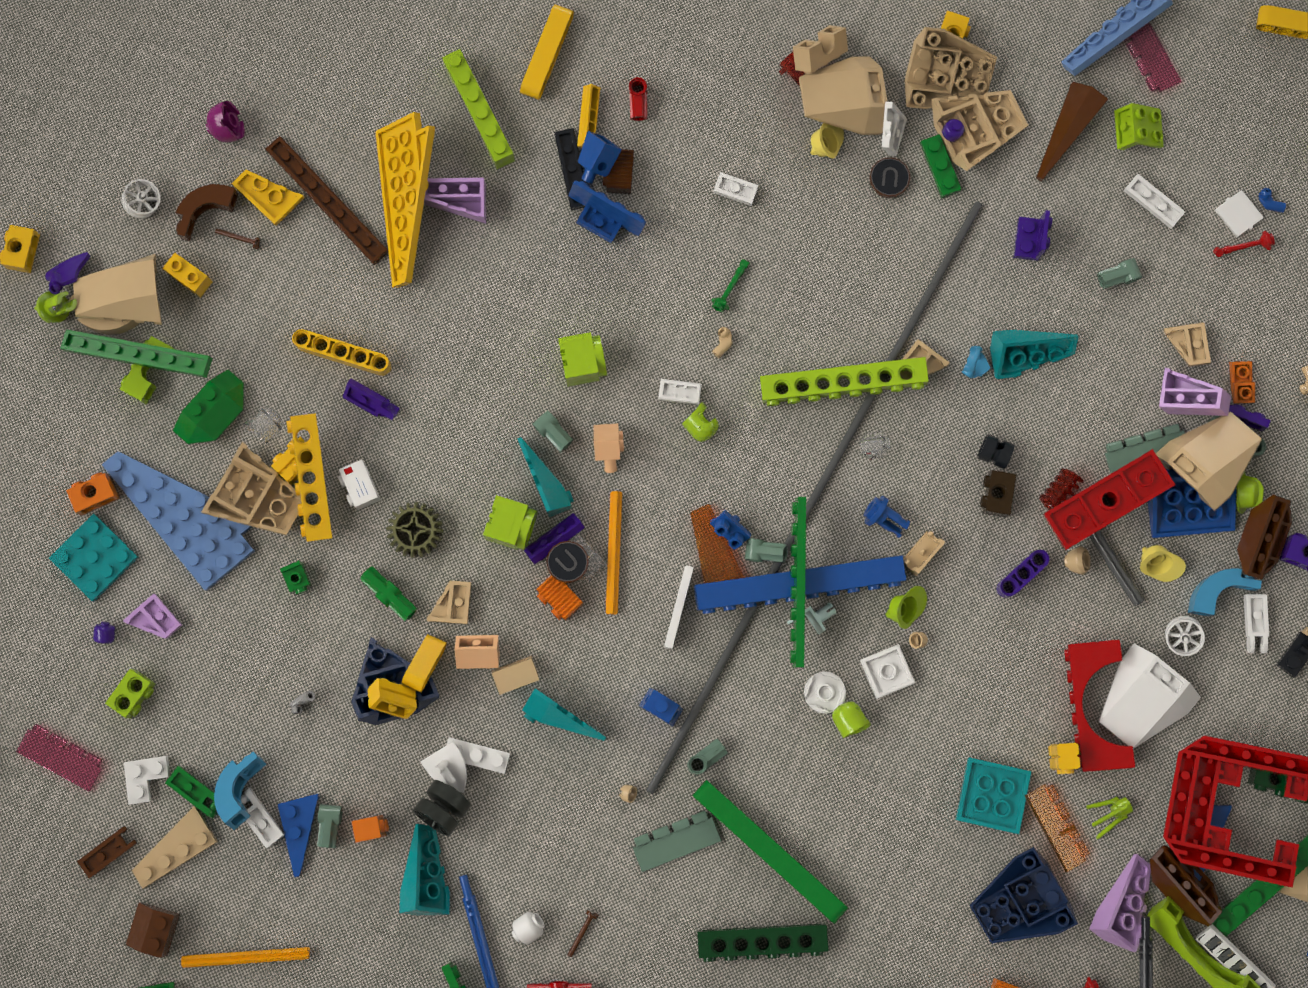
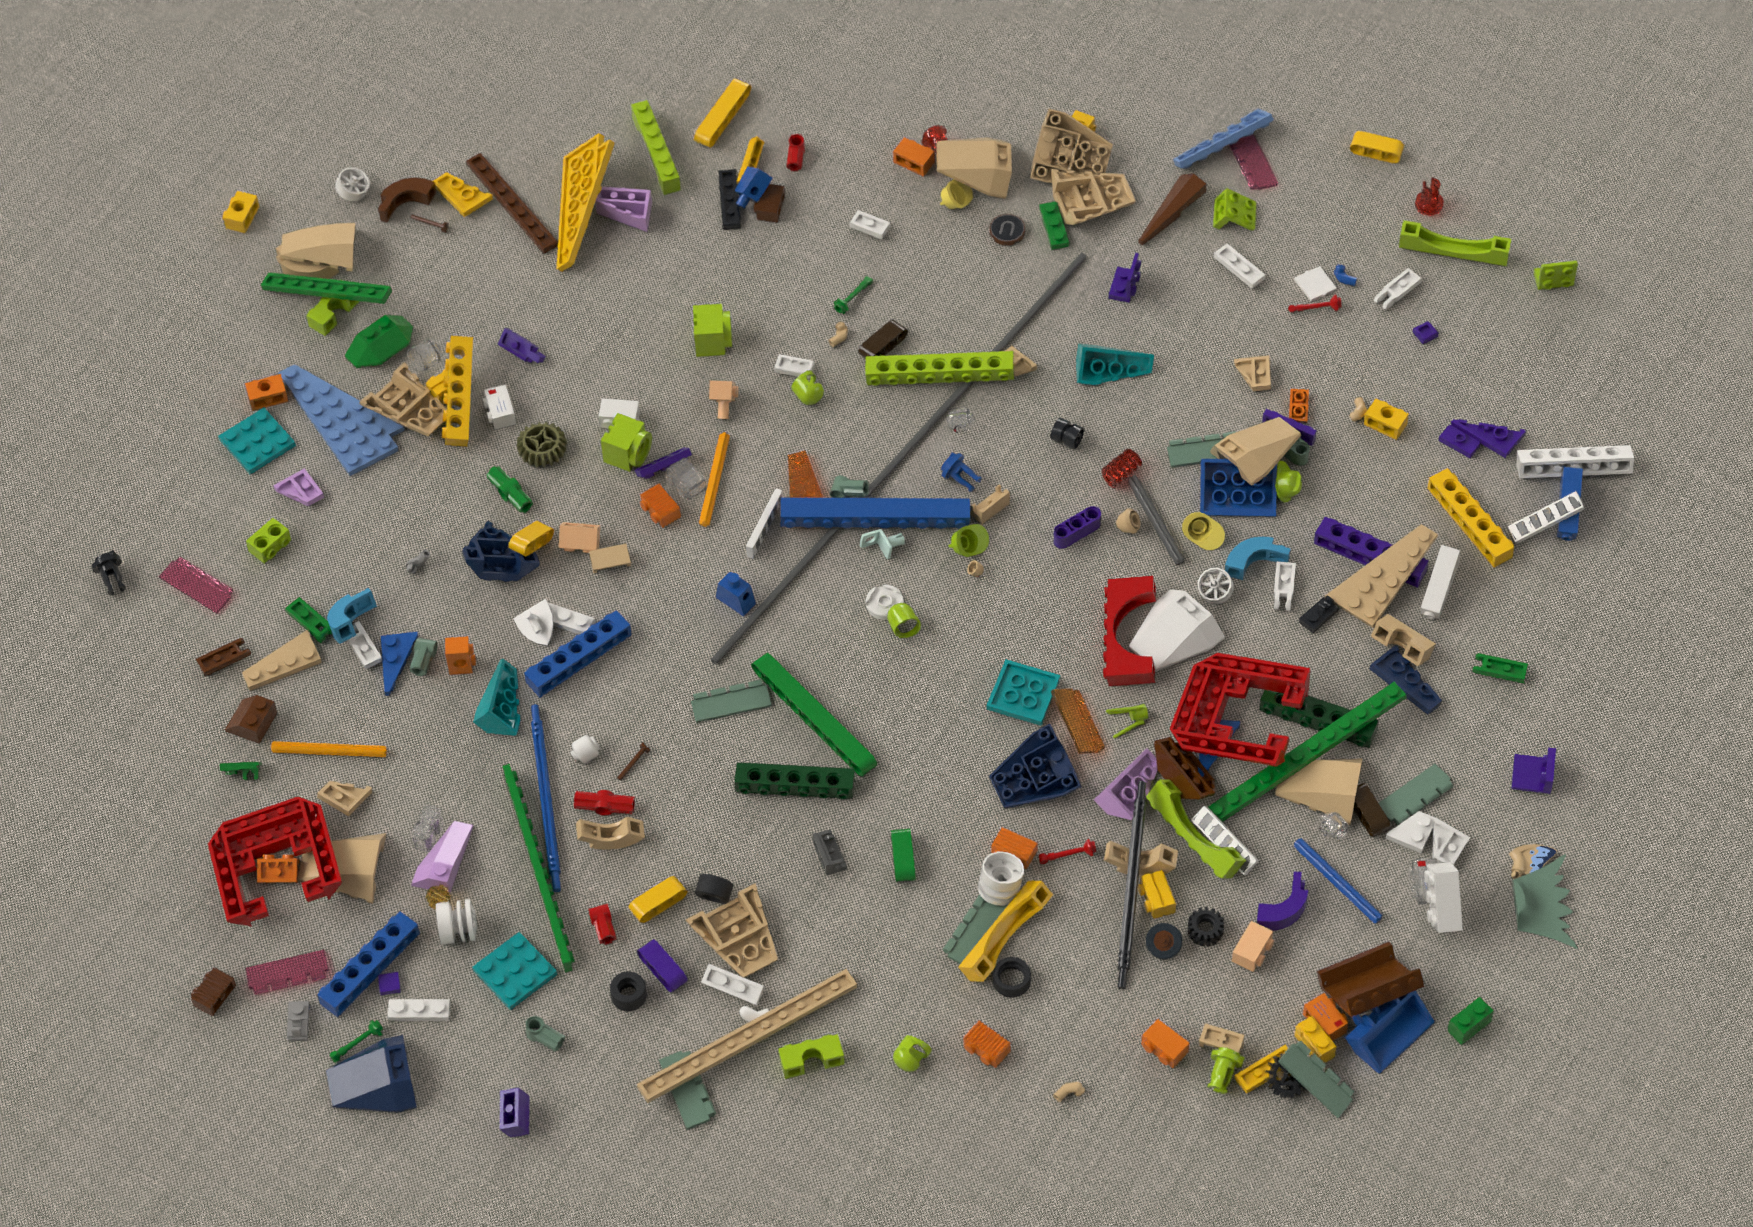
camera: 10 degrees right, 25 degrees down
(63, 306) = (261, 253): lime piece -> none
(66, 272) = (269, 234): dark purple arm -> none
(104, 633) = (254, 495): dark purple piece -> none
(138, 776) = (264, 602): white plate -> none
(187, 275) = (381, 242): yellow brick -> none
(224, 123) = (433, 137): magenta cylinder -> none
(302, 584) = (430, 469): green brick -> none
(335, 345) = (503, 310): yellow beam -> none
(392, 698) = (498, 553): yellow brick -> none
(445, 802) = (526, 644): pearl dark grey wheel -> none
(453, 604) = (564, 503): tan wing -> none
(465, 847) = (574, 662): none -> blue brick
(494, 480) = (611, 407): none -> white brick
(548, 712) = (635, 589): teal wedge -> none
(549, 427) = (675, 382): sand green piece -> none
(550, 489) = (666, 424): teal wedge -> none
(567, 562) = (671, 474): black tile -> none
(603, 215) = (750, 227): blue bracket -> none
(628, 793) = (694, 655): tan hinge -> none
(708, 756) = (766, 638): sand green piece -> none
(731, 529) = (820, 467): blue hips -> none
(772, 90) = (914, 156): none -> orange brick
(773, 348) = (883, 340): none -> dark brown beam
(797, 592) = (870, 508): green plate -> none
(812, 55) = (952, 125): tan arch -> none
(887, 671) = (943, 590): white plate -> none
(892, 128) = (1015, 190): white wing -> none
(953, 130) = (1068, 197): dark purple piece -> none
(976, 363) = (1061, 368): dark azure piece -> none
(1005, 483) = (1065, 466): dark brown brick -> none
(1064, 757) = (1090, 662): yellow brick -> none
(1124, 272) = (1205, 314): sand green piece -> none
(1124, 489) = (1158, 468): red plate -> none
(1191, 396) = (1247, 404): lavender wedge -> none
(1264, 536) = (1301, 515): reddish brown wedge -> none

